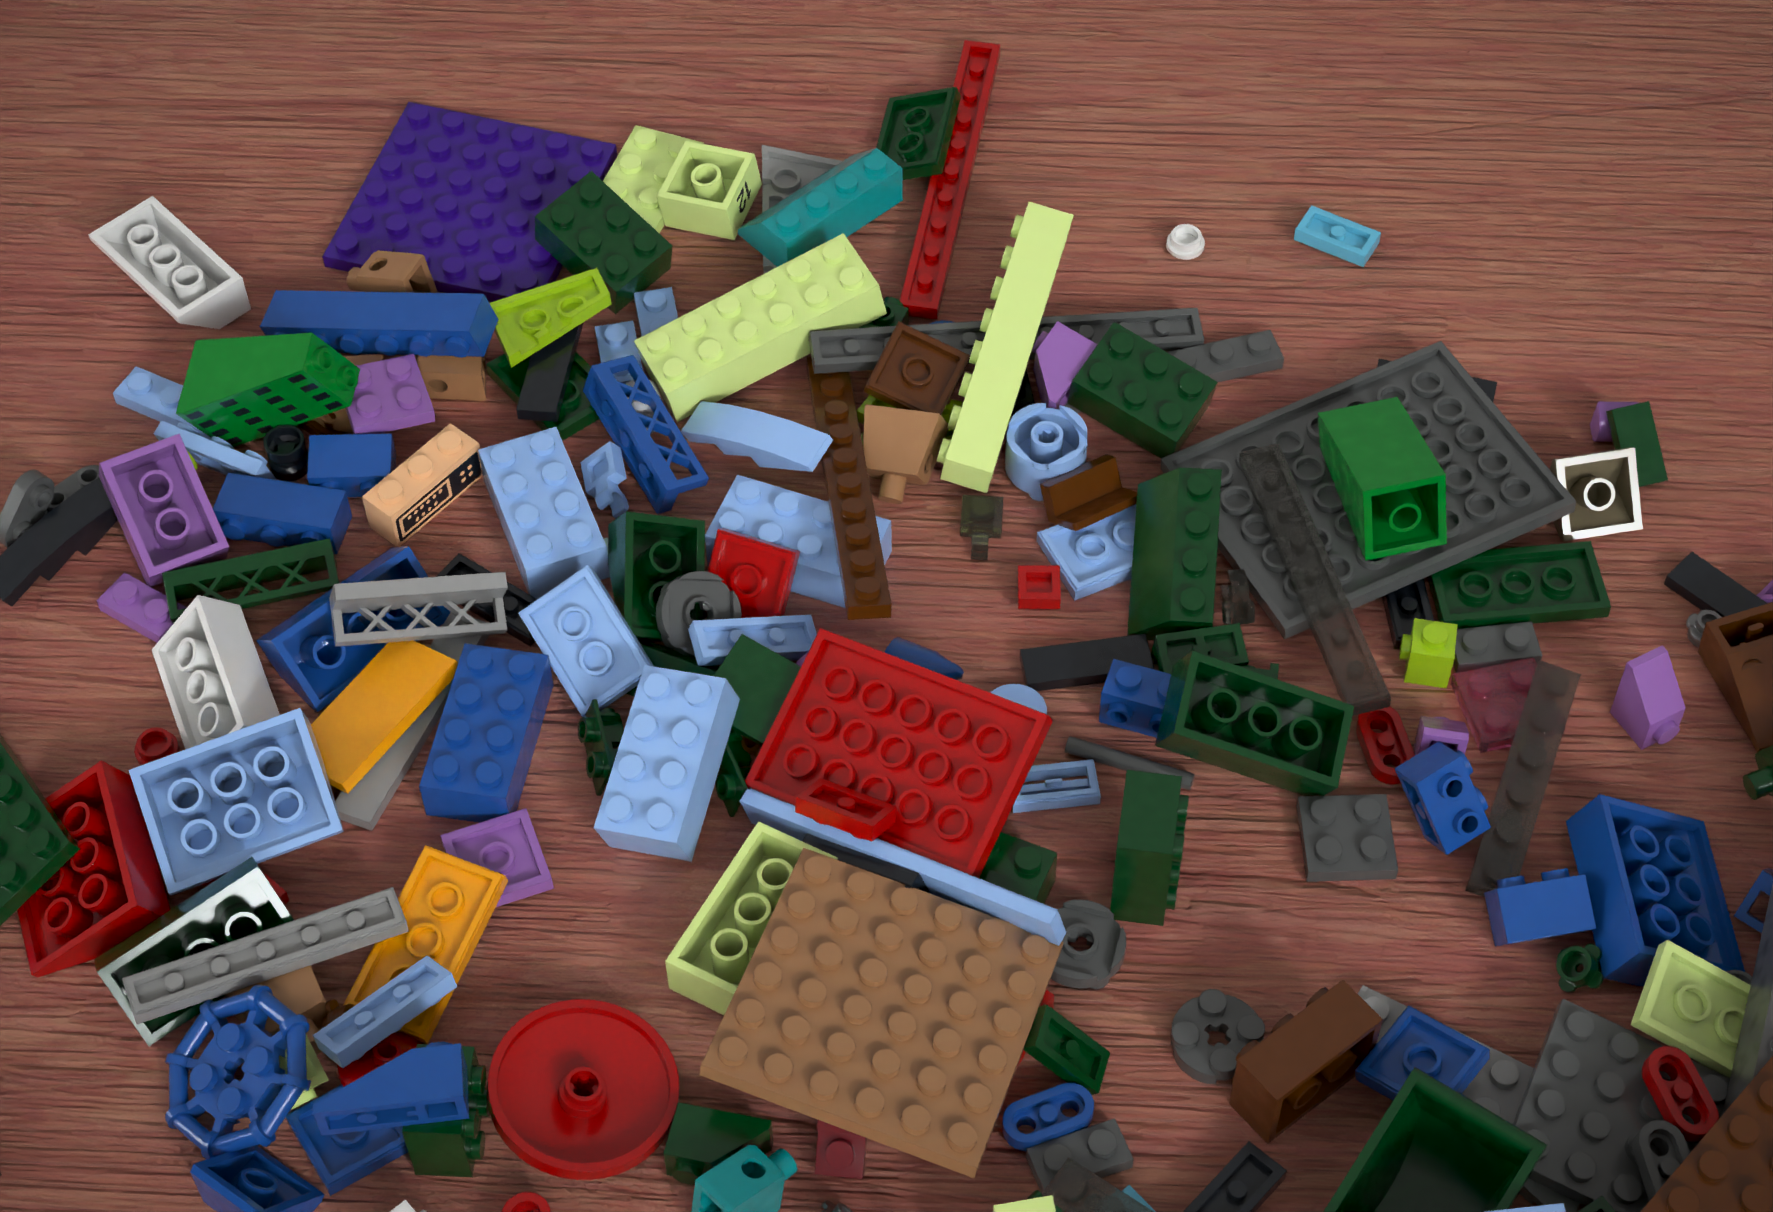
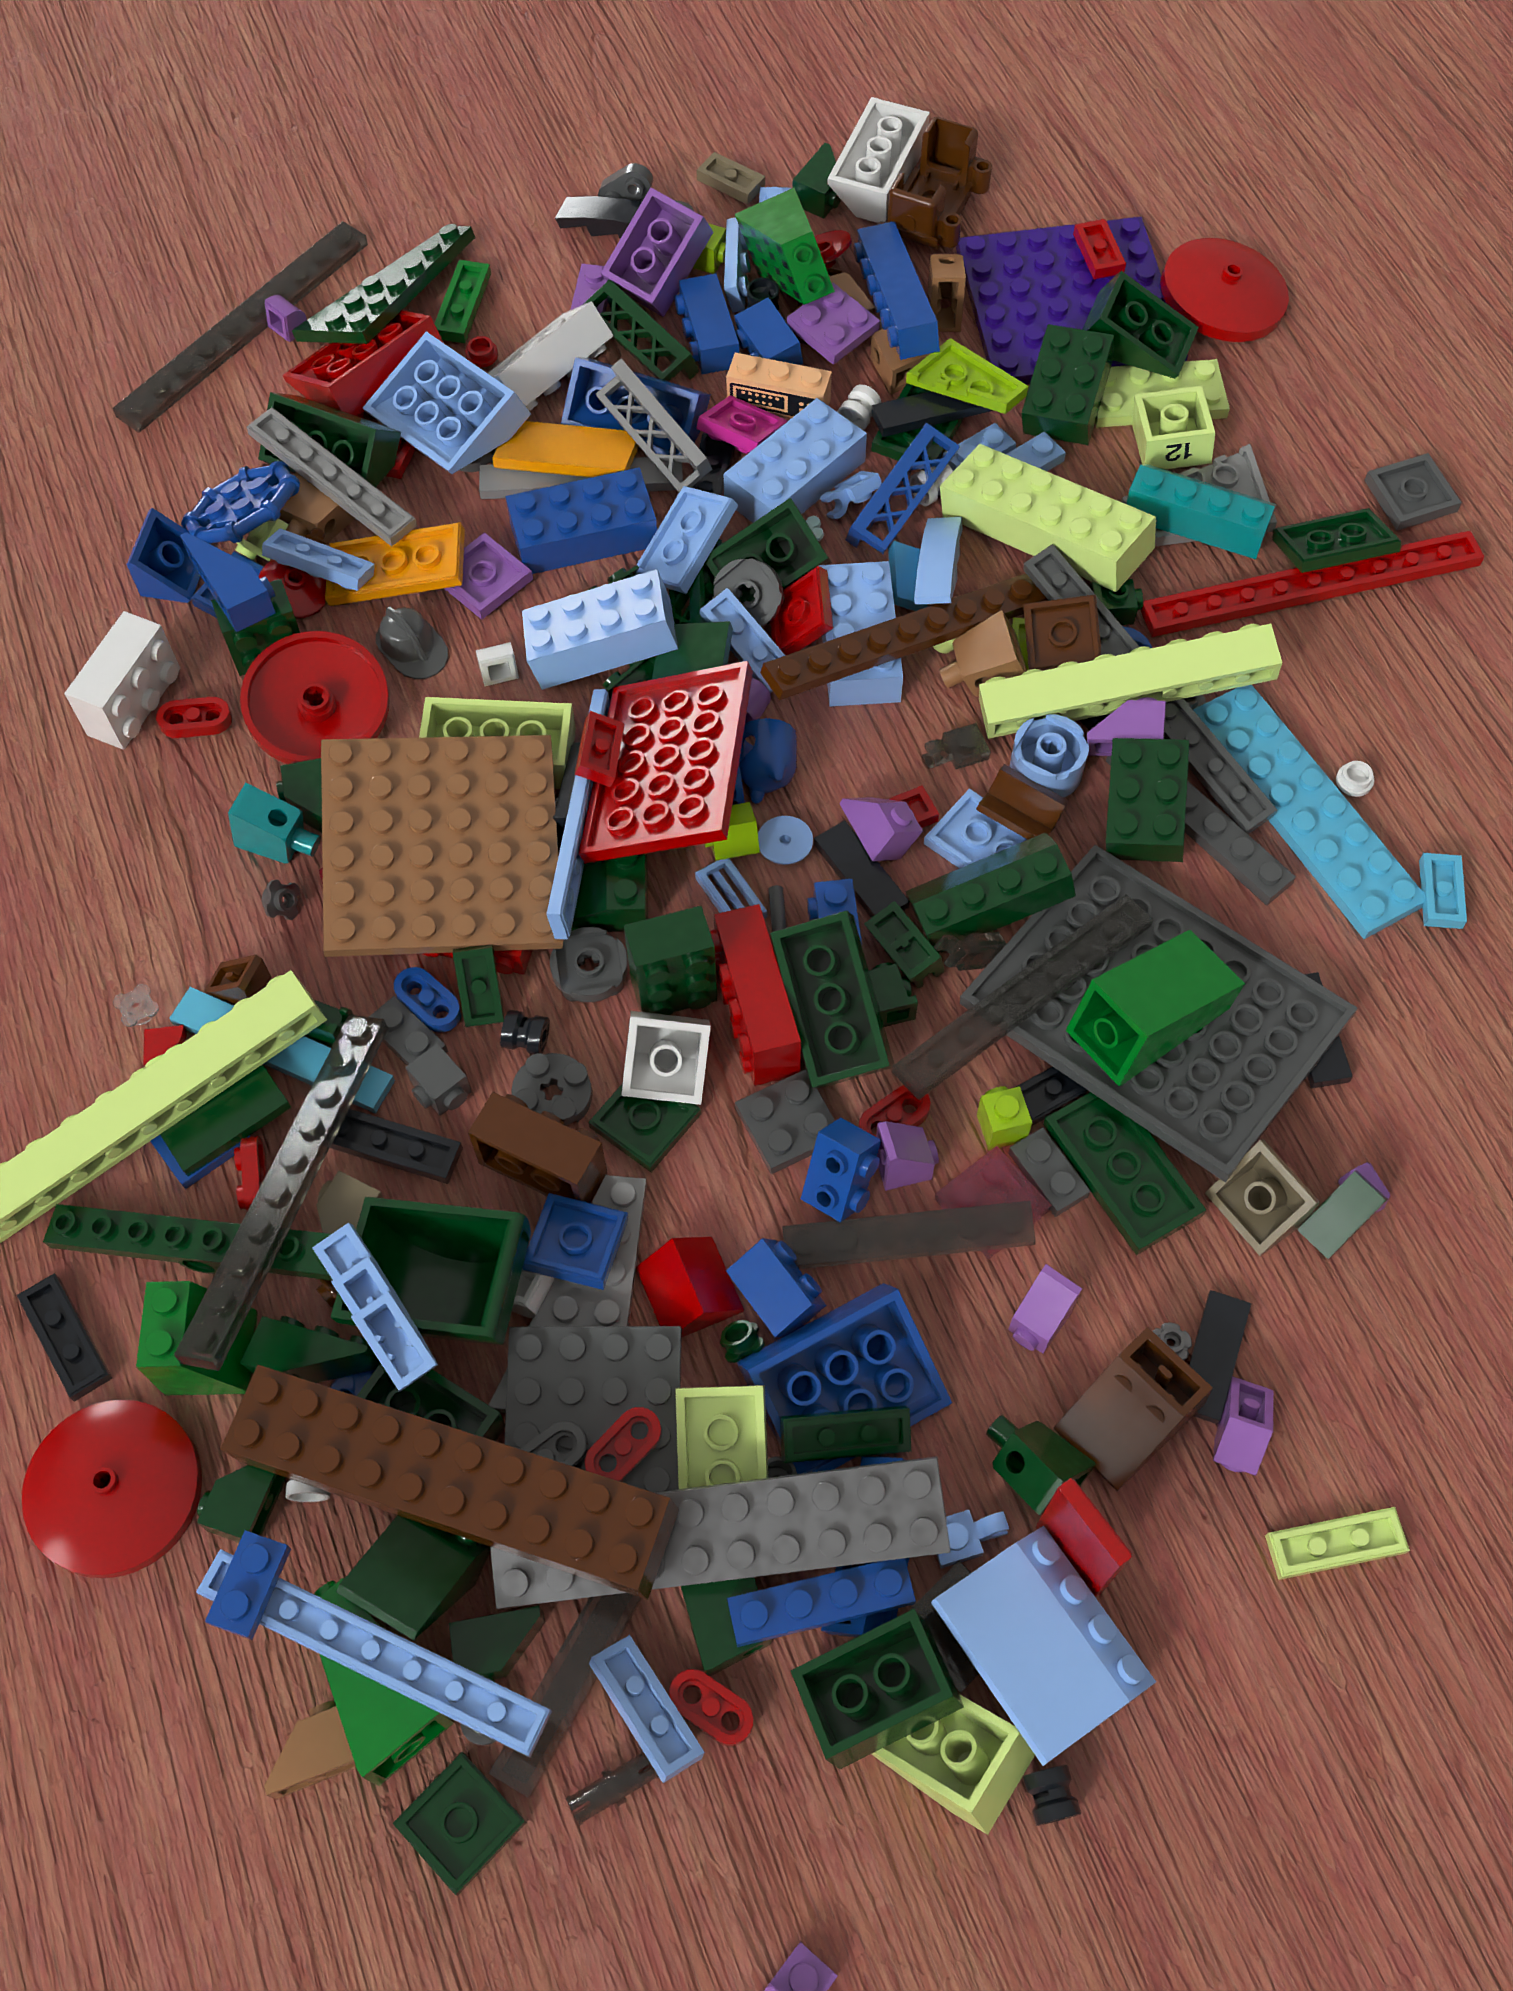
camera: 65 degrees right, 10 degrees up
(59, 735) = (462, 300): none -> green plate
(77, 413) = (730, 178): none -> dark tan plate
(154, 336) = (812, 184): none -> dark green slope
(237, 227) = (939, 188): none -> reddish brown container
(441, 145) = (1099, 248): none -> red plate
(455, 536) = (739, 423): none -> dark pink plate
(496, 423) = (860, 405): none -> white wheel
(542, 973) = (411, 643): none -> dark grey piece
(554, 81) = (1225, 289): none -> red dish
(559, 154) = (1143, 327): none -> dark green slope
(631, 890) = (497, 664): none -> white brick
(724, 468) = (903, 572): none -> dark azure tile
(890, 60) = (1412, 491): none -> dark grey plate
(1047, 615) = (883, 826): none -> medium lavender slope
(1138, 1032) = (525, 1032): none -> black wheel
(1160, 1138) = (438, 1081): none -> dark grey brick
(1220, 287) = (1313, 814): none -> medium azure plate
(1231, 795) = (755, 996): none -> red brick
(1233, 907) = (666, 1057): none -> white slope
(1284, 963) = (643, 1126): none -> dark green tile
(1501, 996) = (689, 1284): none -> red slope
(1715, 910) = (845, 1434): none -> dark green tile

